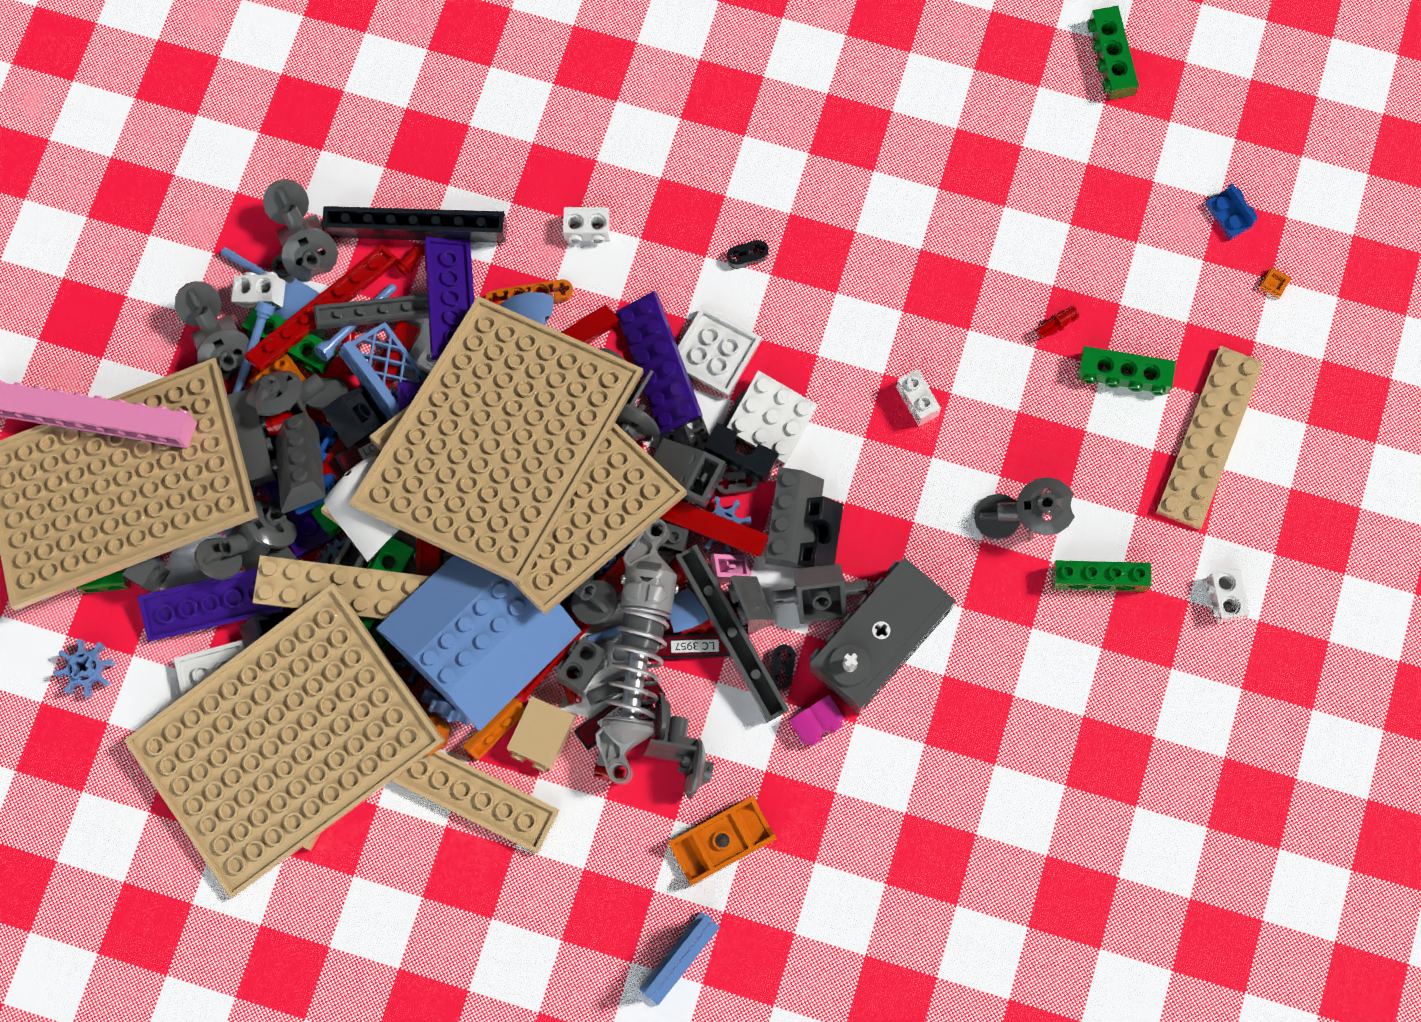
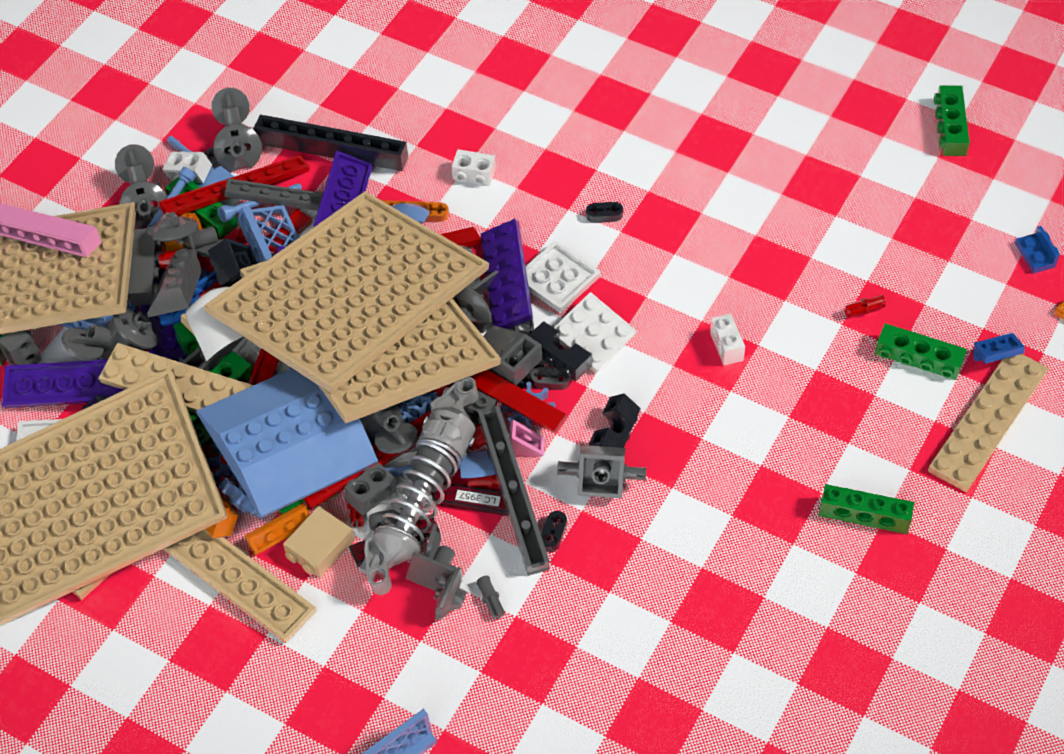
camera: 10 degrees right, 20 degrees down
(409, 260) = (318, 169): red pin -> none
(601, 772) = (365, 587): red pin -> none
(701, 856) = (434, 669): orange piece -> none
(736, 758) = (490, 597): none -> dark grey axle
(749, 599) = (535, 467): dark grey slope -> none
(788, 516) = (587, 409): dark grey slope -> none
(816, 721) = (573, 579): dark pink brick -> none
(902, 608) = (649, 517): dark grey piece -> none
(1001, 515) = (817, 433): dark grey piece -> none
(1208, 352) = (997, 348): none -> blue bracket
(1234, 595) = (988, 548): white brick -> none

